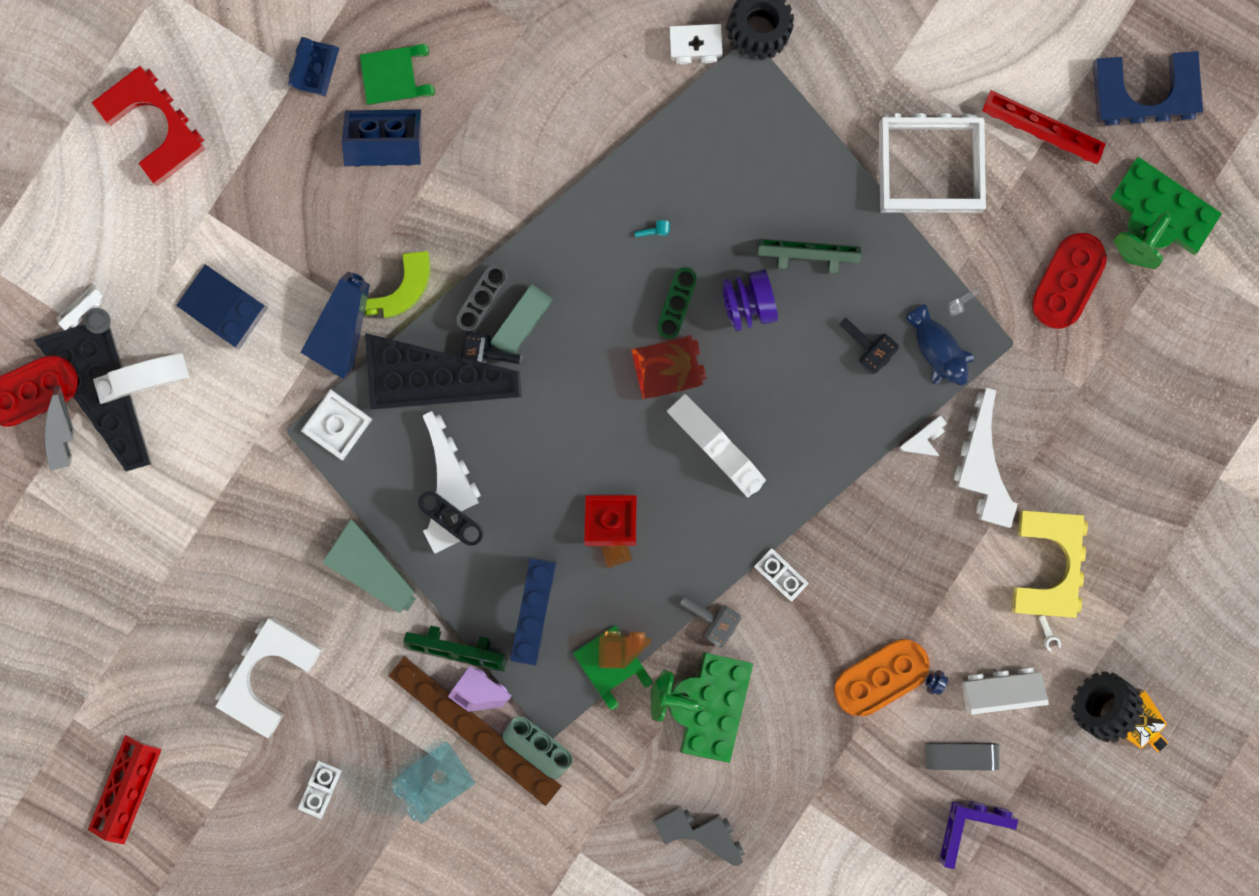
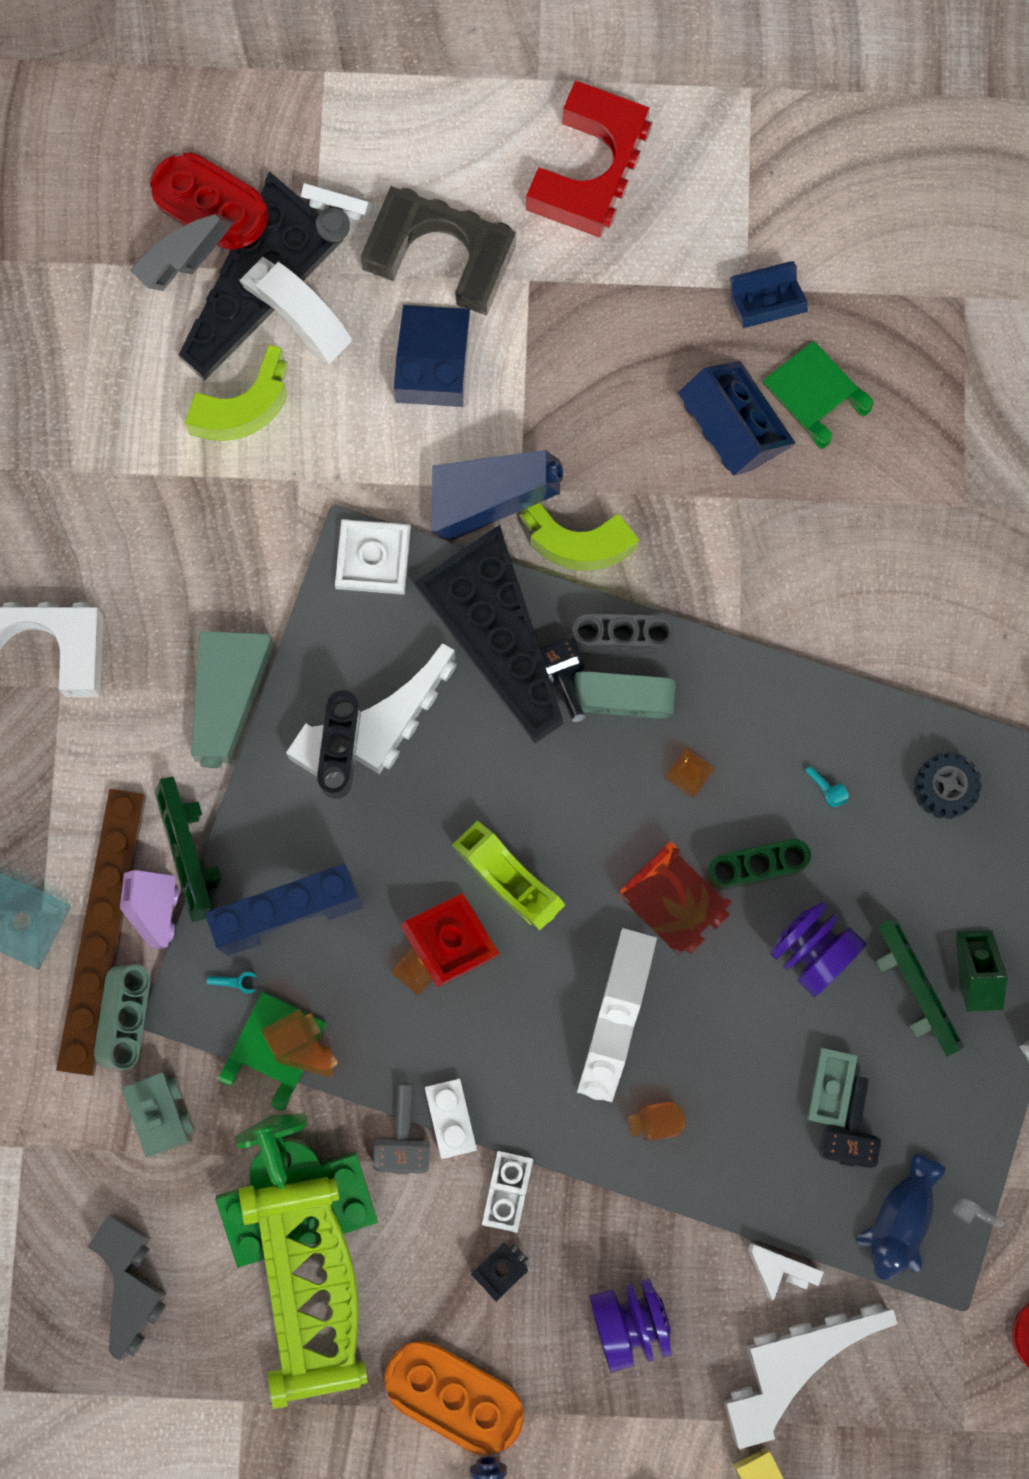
camera: 55 degrees right, 10 degrees down
(118, 267) = (409, 216): none -> clear smoke arch
(192, 449) = (245, 414): none -> lime arch
(556, 667) = (234, 982): none -> teal hand
(593, 462) = (507, 876): none -> lime arch
(594, 310) = (689, 773): none -> clear orange tile
(609, 758) = (158, 1114): none -> sand green brick
(700, 144) = (955, 775): none -> black wheel
(714, 720) = (303, 1370): none -> lime piece
(718, 583) = (450, 1119): none -> white plate
(794, 460) = (657, 1121): none -> clear orange arm
(822, 208) = (981, 971): none -> dark green slope
(825, 616) = (490, 1281): none -> black brick
(837, 342) = (832, 1088): none -> sand green plate
(903, 548) = (631, 1325): none -> dark purple wheel

